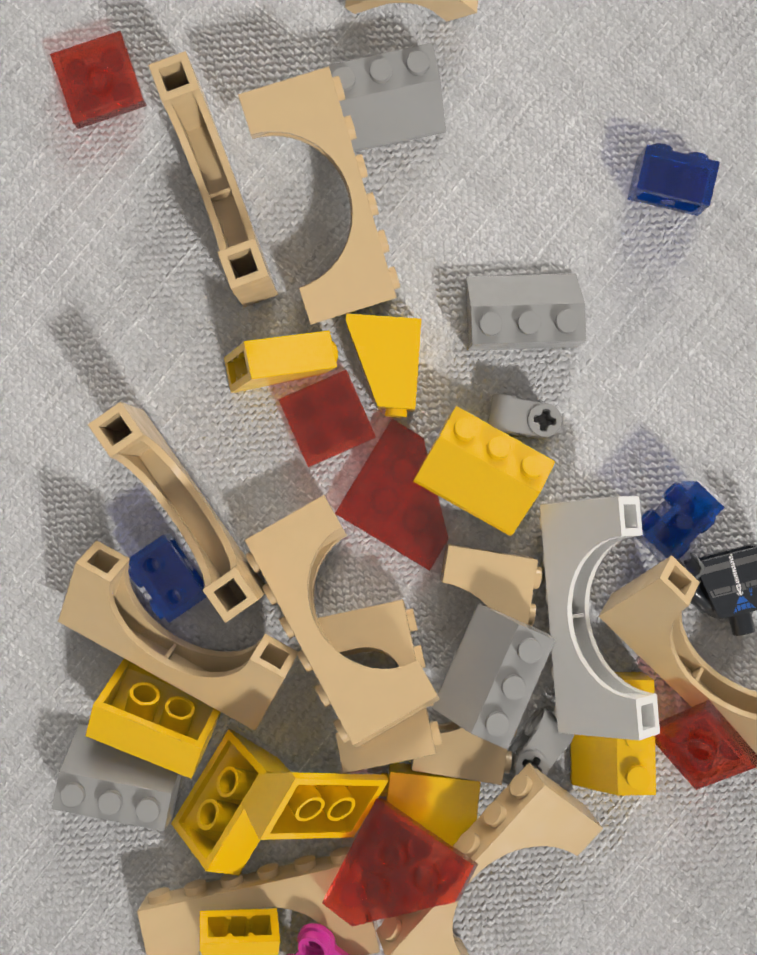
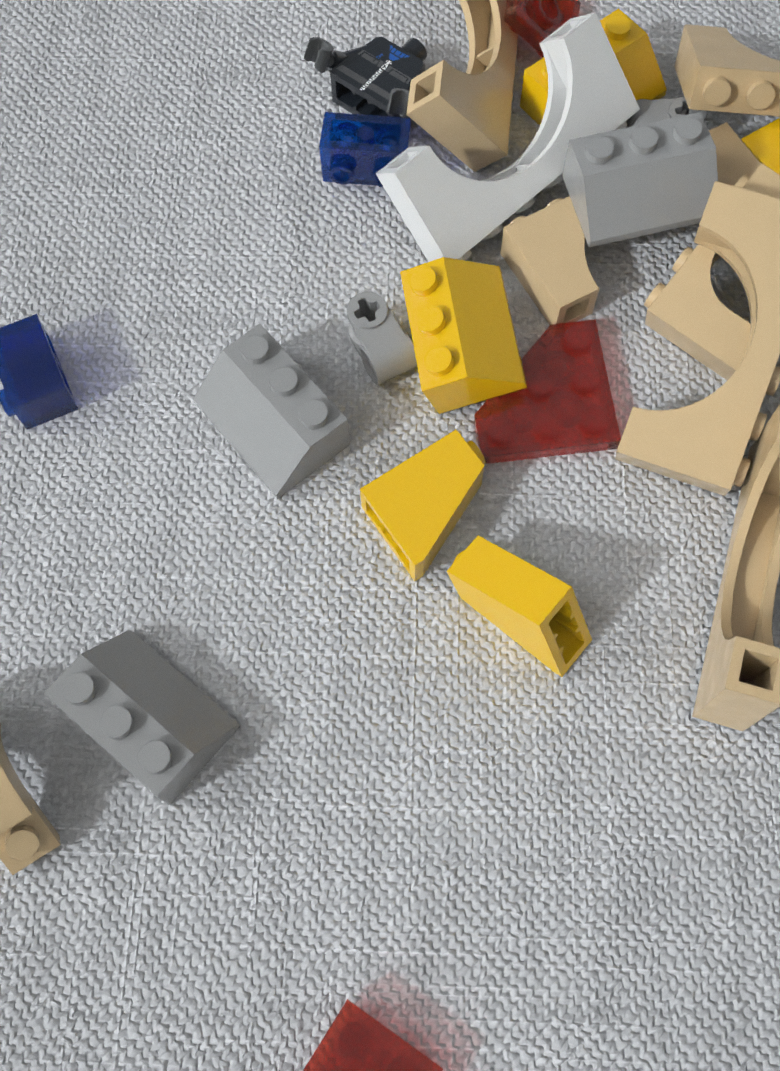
camera: 125 degrees left, 20 degrees down
(202, 145) = (337, 891): tan arch -> none
(311, 112) = (223, 749): tan arch -> none
(327, 418) = (536, 515): clear red plate -> none

